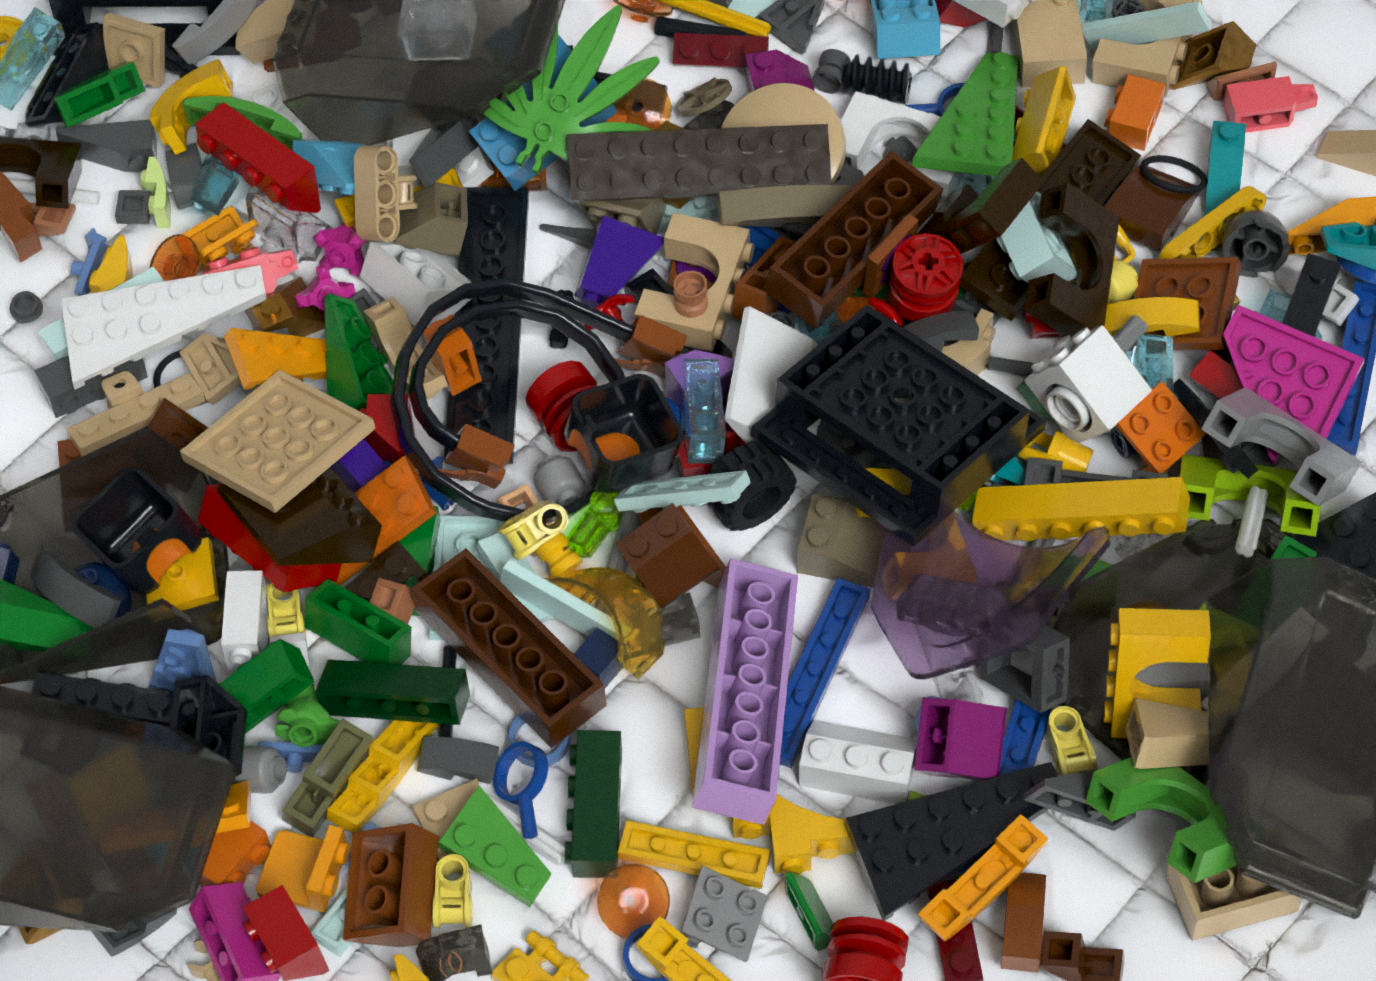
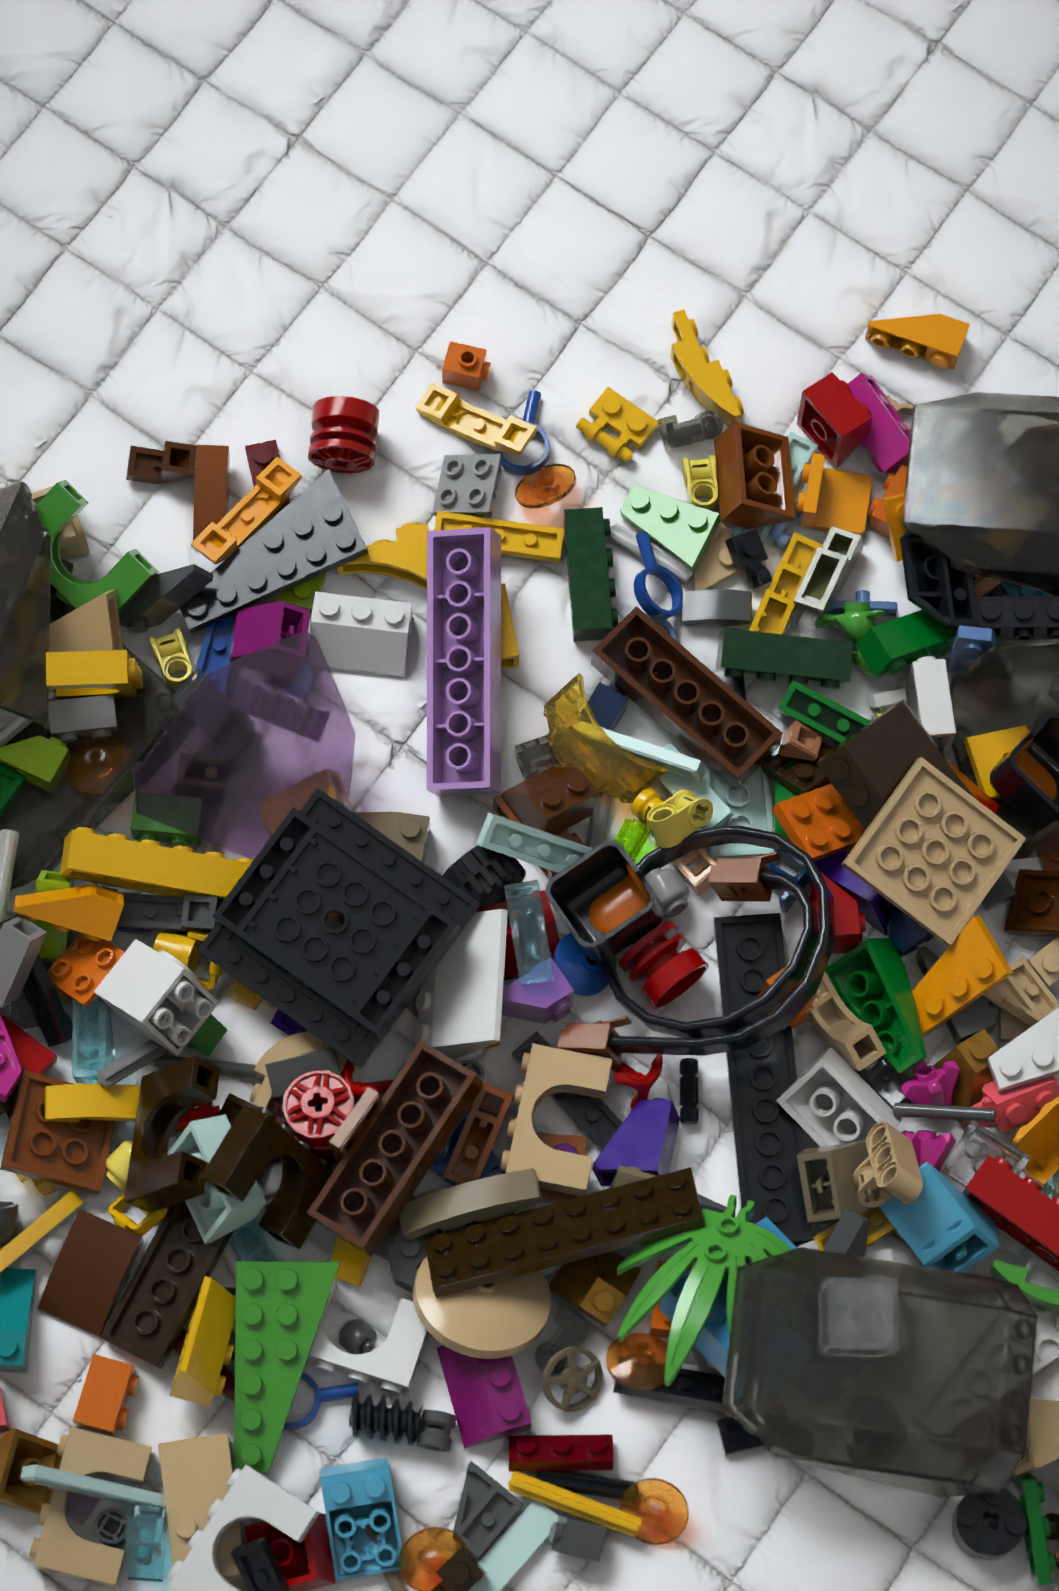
camera: 170 degrees right, 15 degrees up
(262, 768) = (888, 582): light grey head -> none
(317, 258) = (944, 1112): none -> dark grey bar
(415, 803) = (748, 553): none -> black plate
(690, 294) = (556, 1064): nougat wheel -> none
(809, 909) = (392, 494): green slope -> none
(820, 663) = (400, 730): blue plate -> none
(1168, 186) = (97, 1311): black tyre -> none
(1171, 456) = (78, 908): none -> light orange slope

